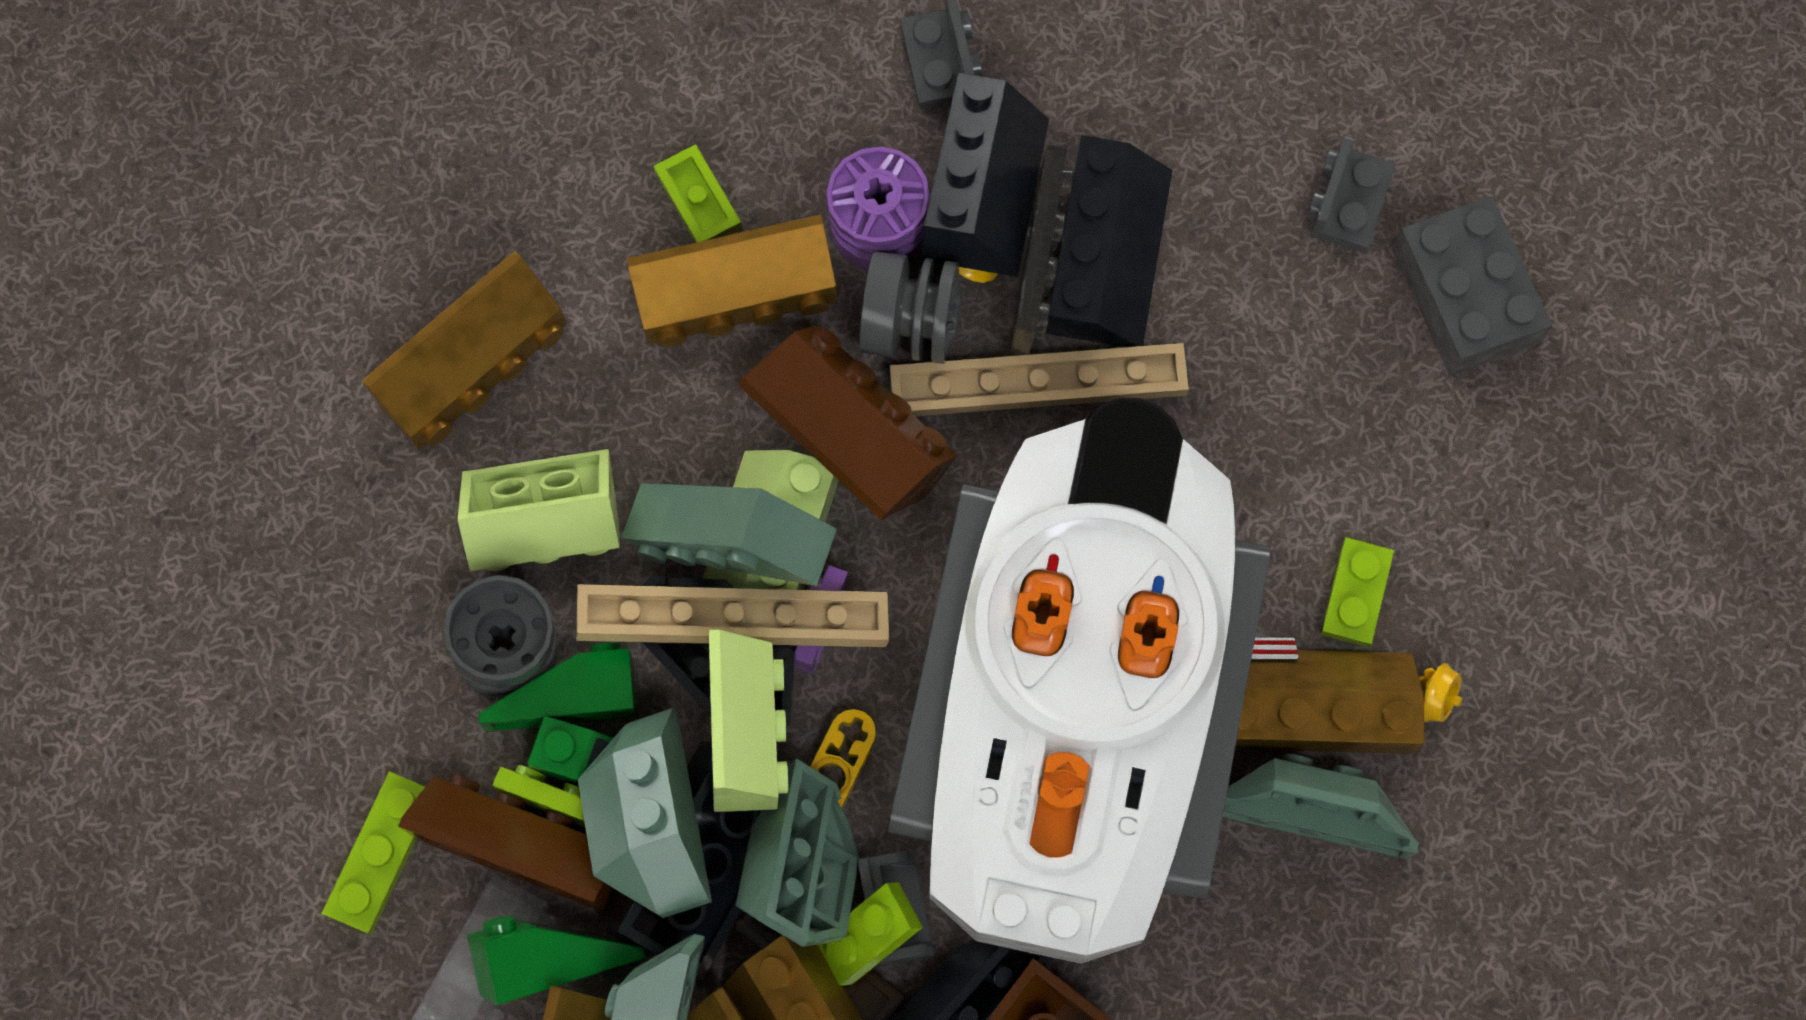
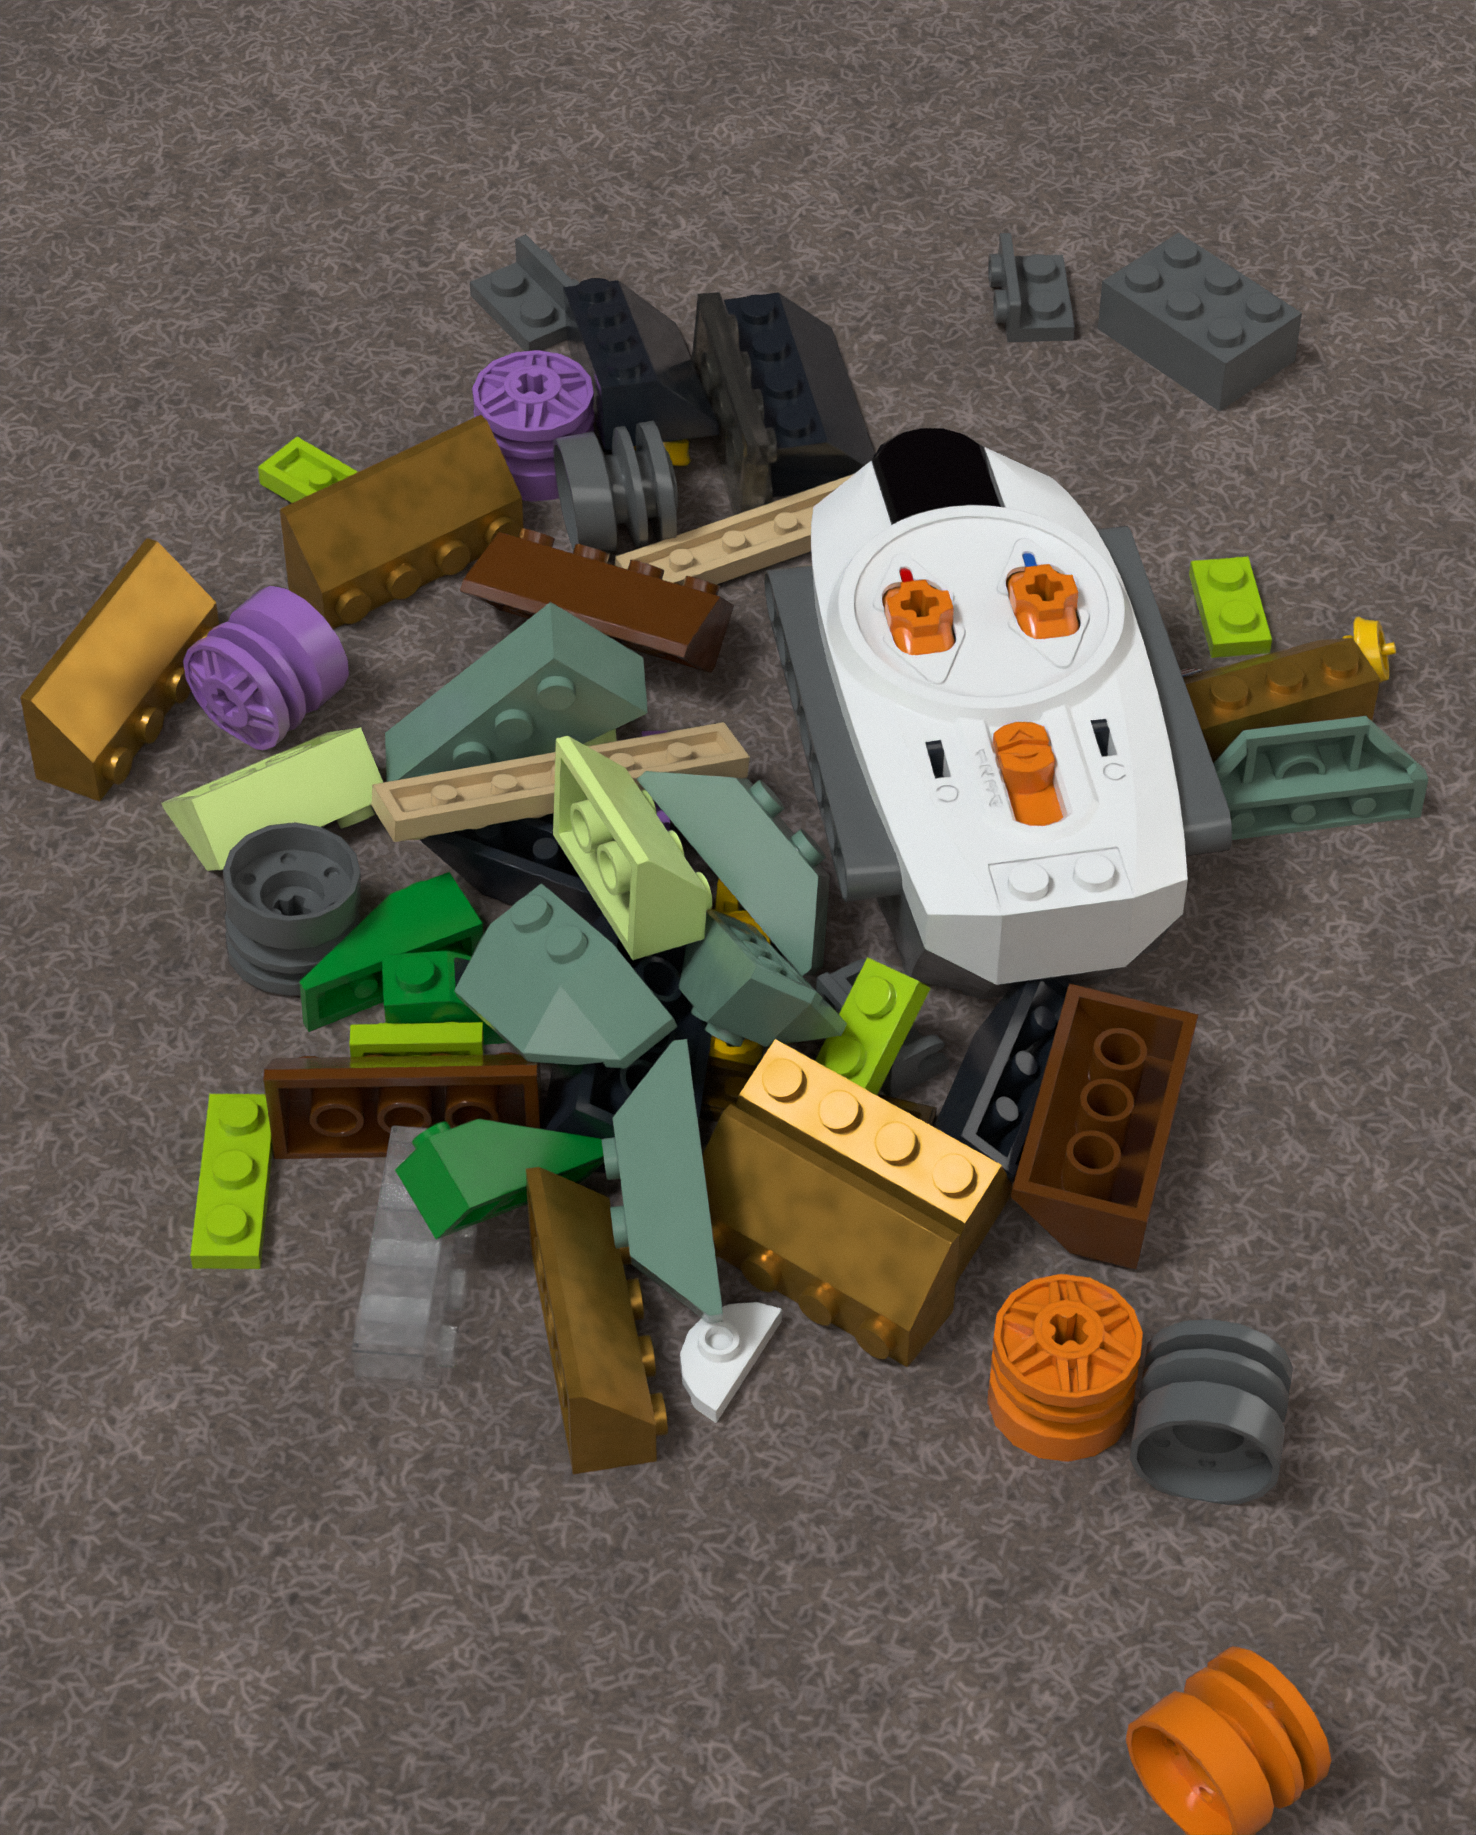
camera: 25 degrees left, 25 degrees down
(572, 392) = (266, 667): none -> medium lavender wheel
(845, 734) = (754, 855): none -> sand green wedge

